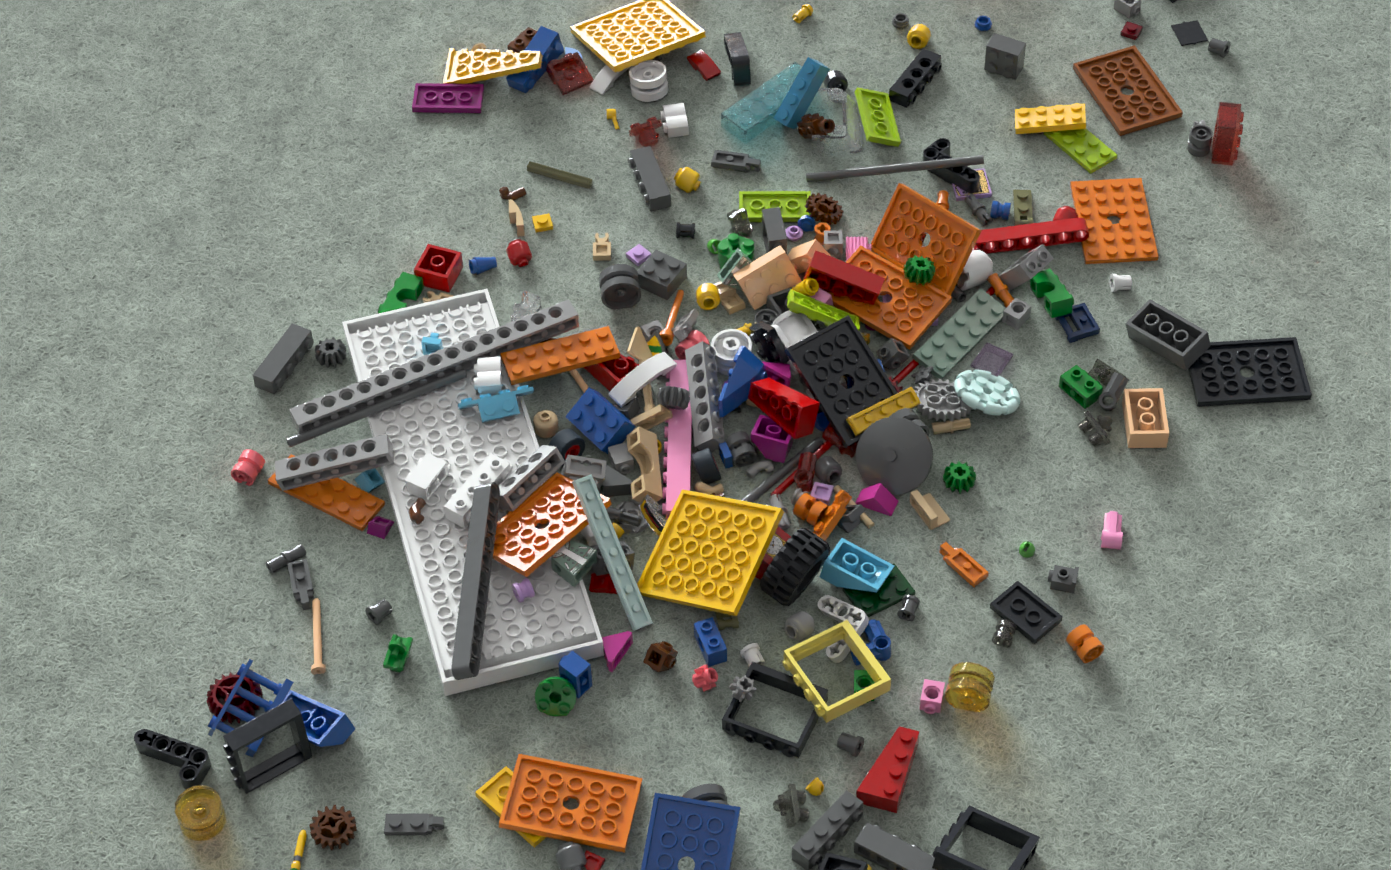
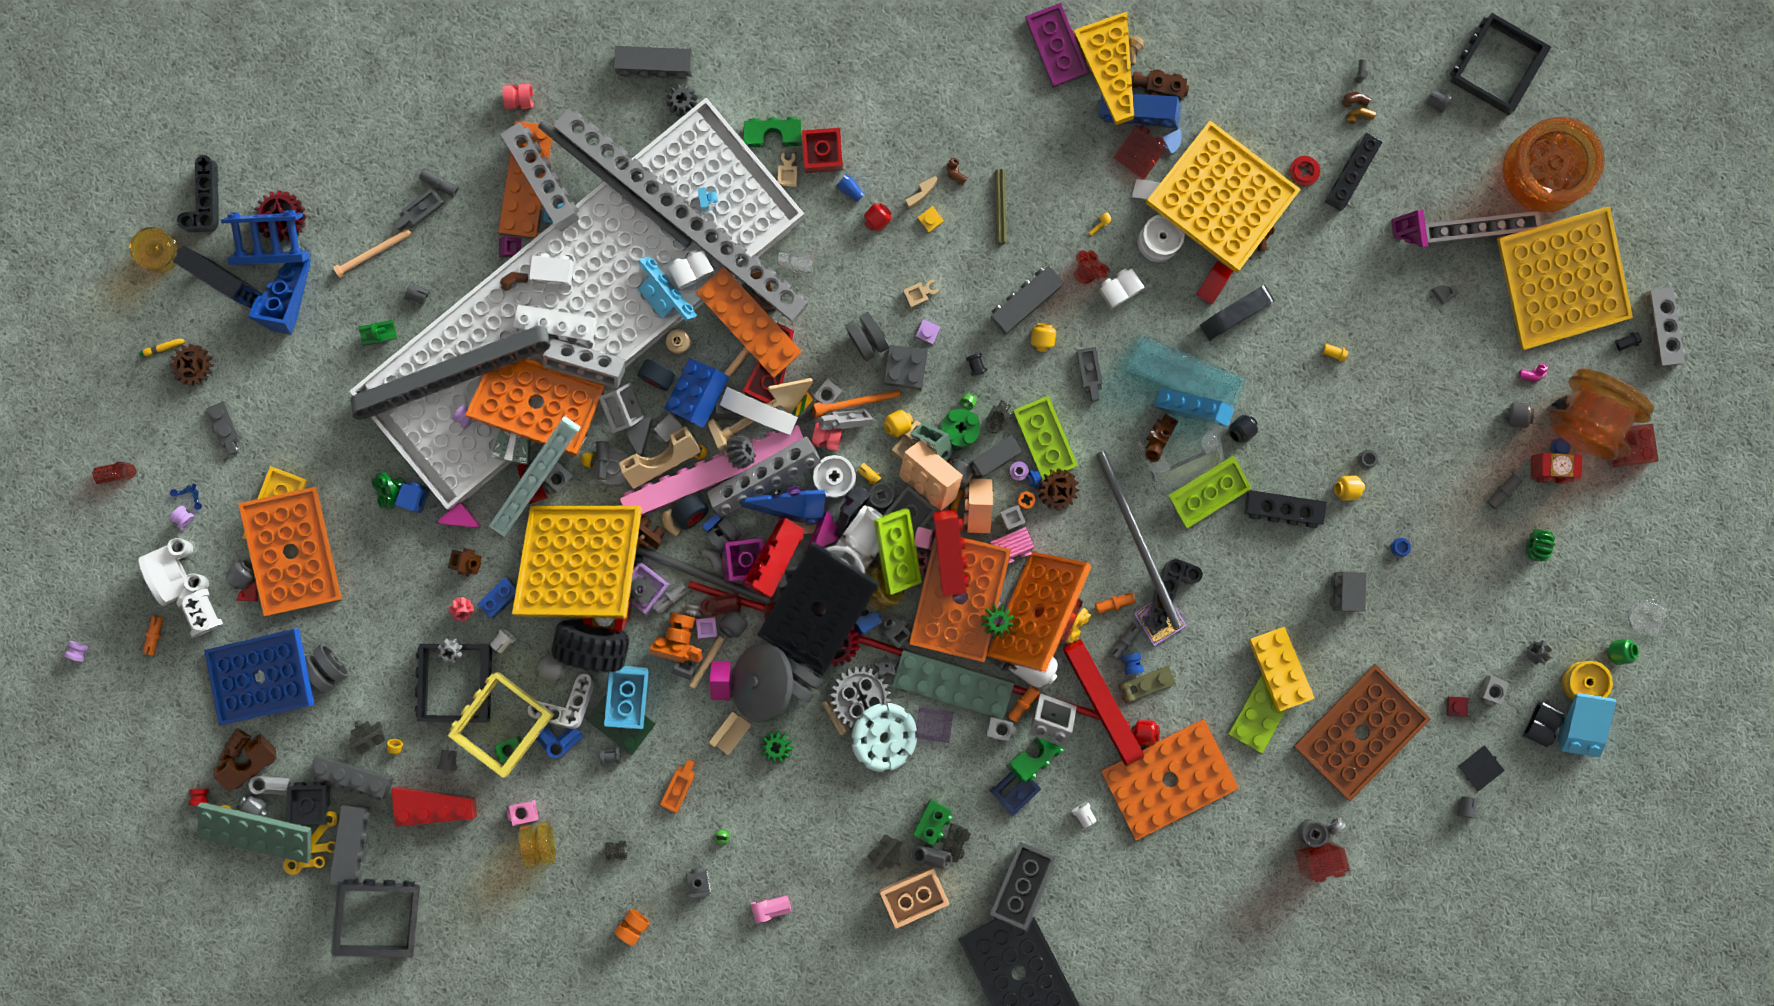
camera: 65 degrees right, 35 degrees up
(649, 510) = (613, 487): slope -> none
(807, 287) = (922, 522): yellow cone -> none
(862, 420) = (805, 654): yellow tile -> none
(1026, 611) = (649, 861): black plate -> none

